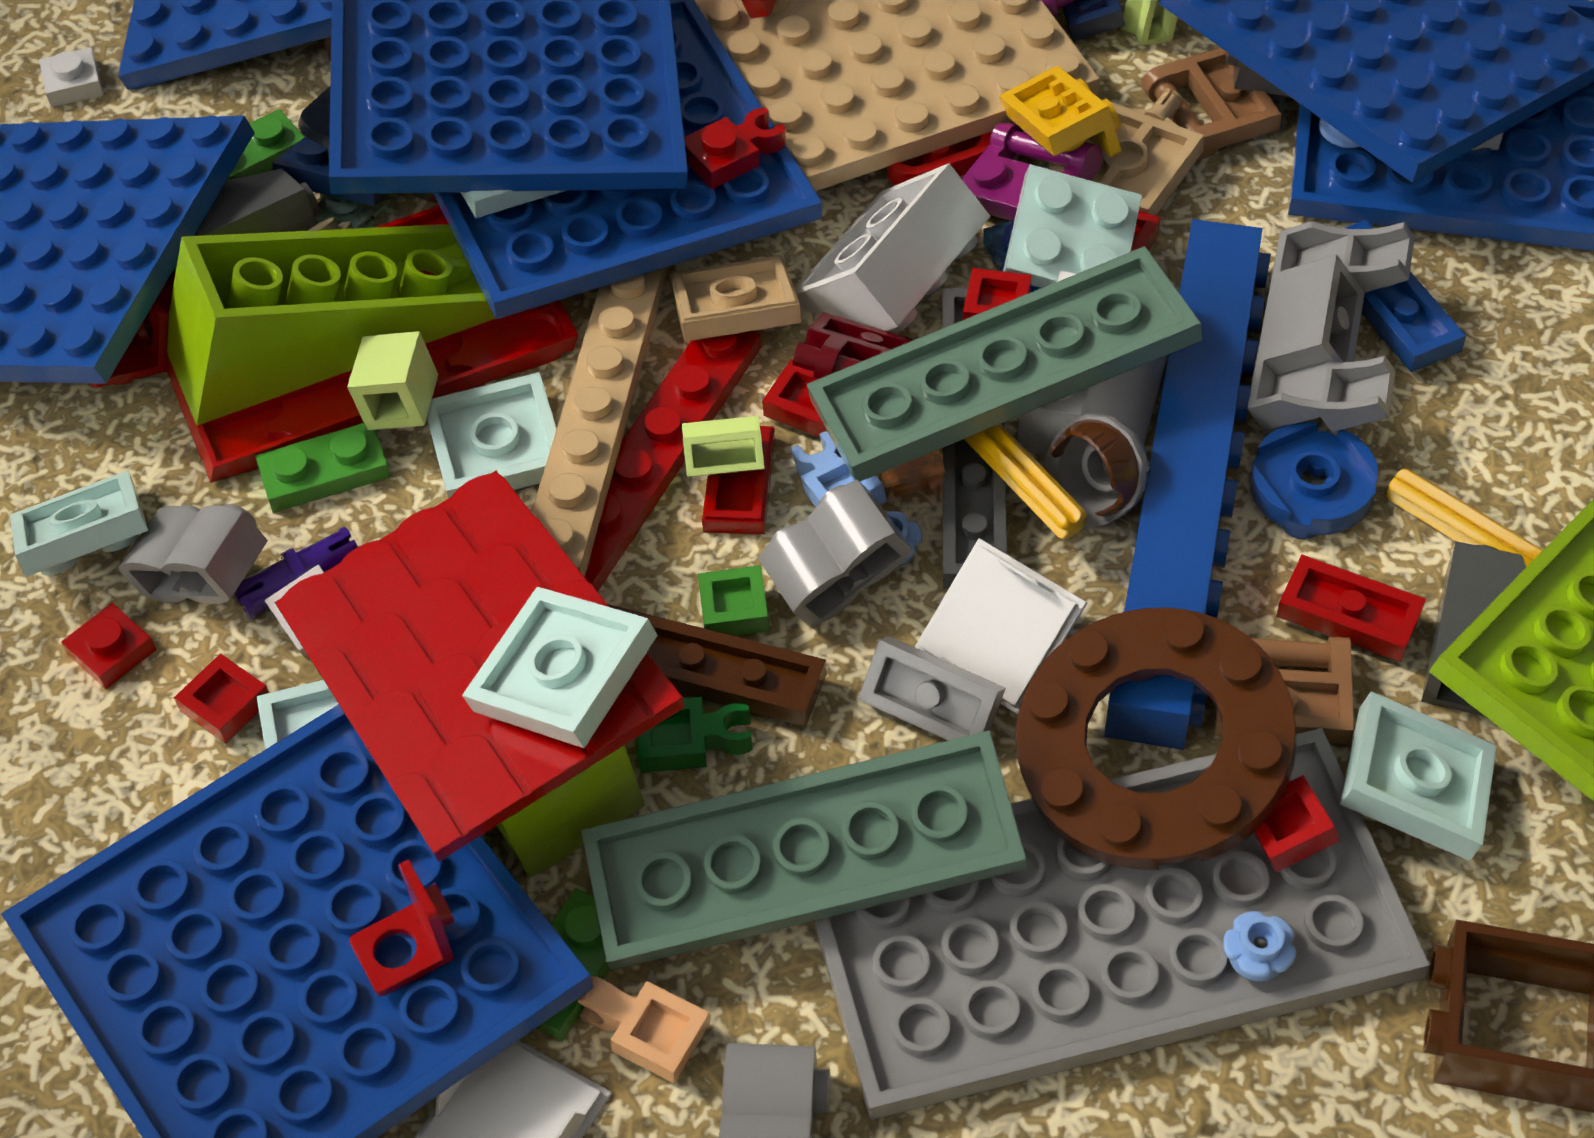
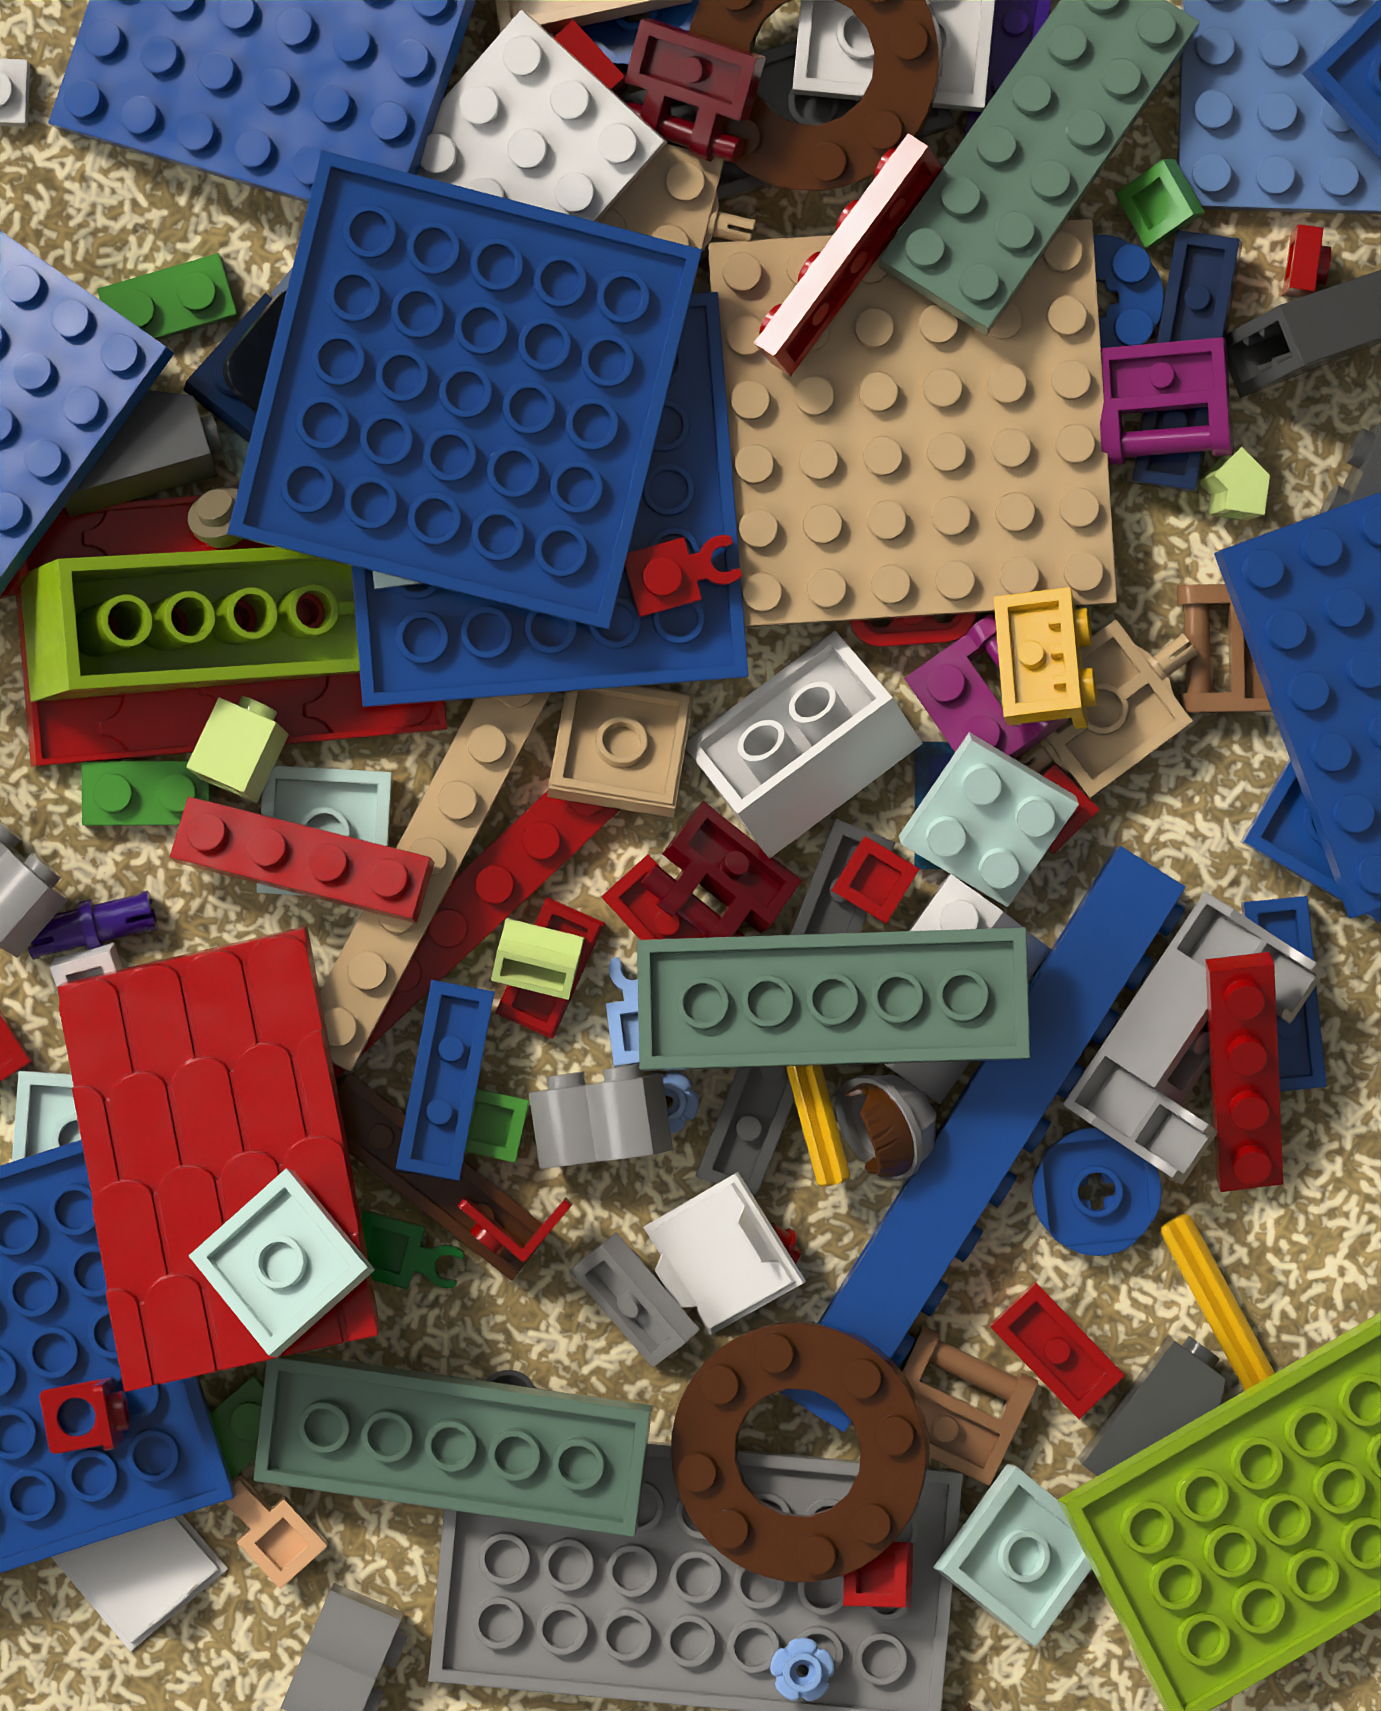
camera: 15 degrees right, 35 degrees up
(478, 434) = (302, 859): none -> red plate
(675, 567) = (444, 1081): none -> blue plate
(781, 658) = (497, 1238): none -> red bracket
(1392, 323) = (1244, 1071): none -> red plate

